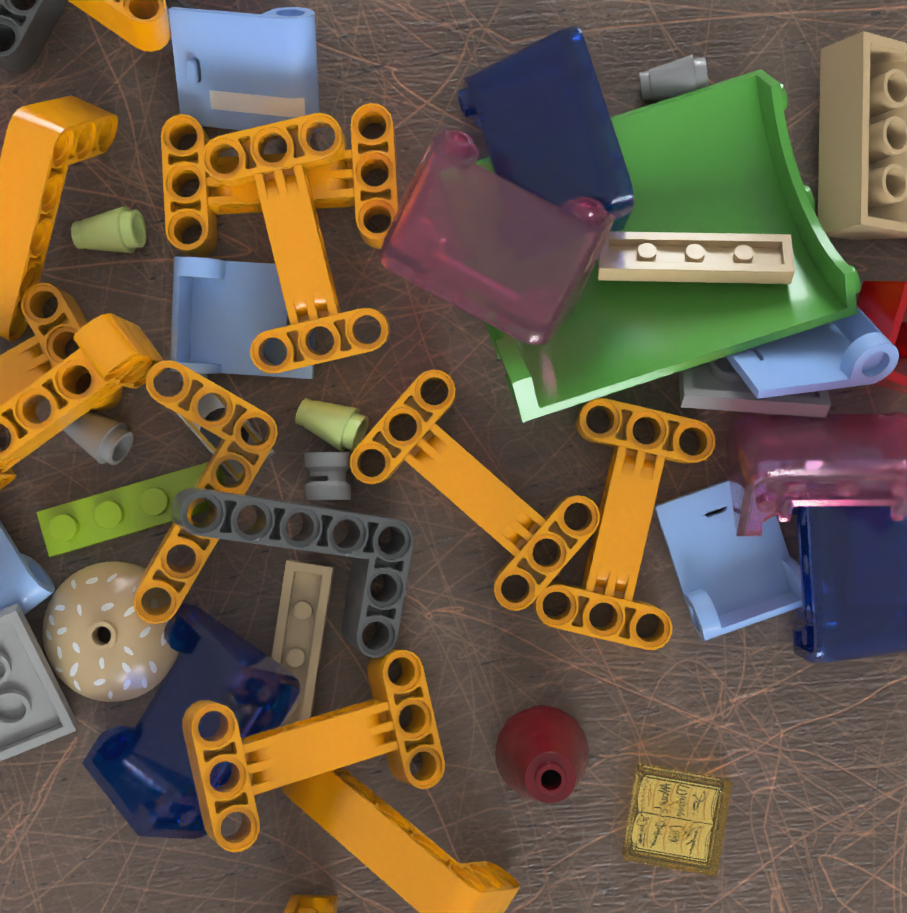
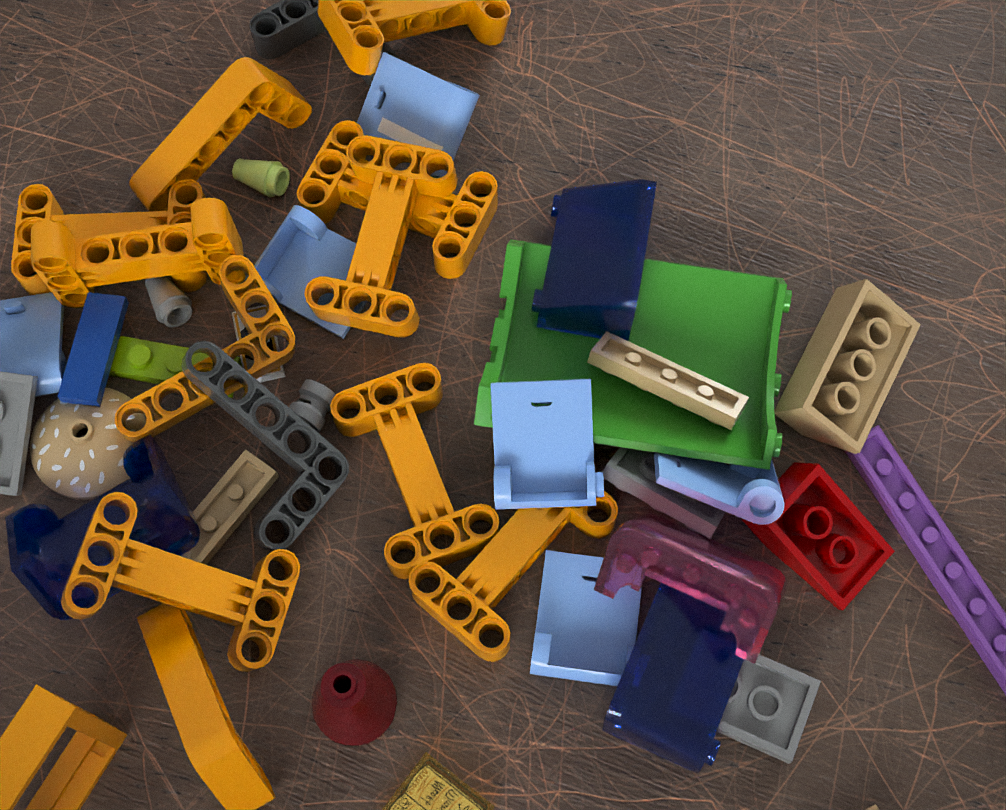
camera: 25 degrees right, 20 degrees down
(55, 536) = (93, 349): none -> blue tile
(333, 423) = (337, 370): yellowish green cone -> none
(493, 242) = (523, 295): clear pink windscreen -> none
(611, 409) = (544, 449): none -> light blue door
(674, 78) = (717, 257): light grey cone -> none

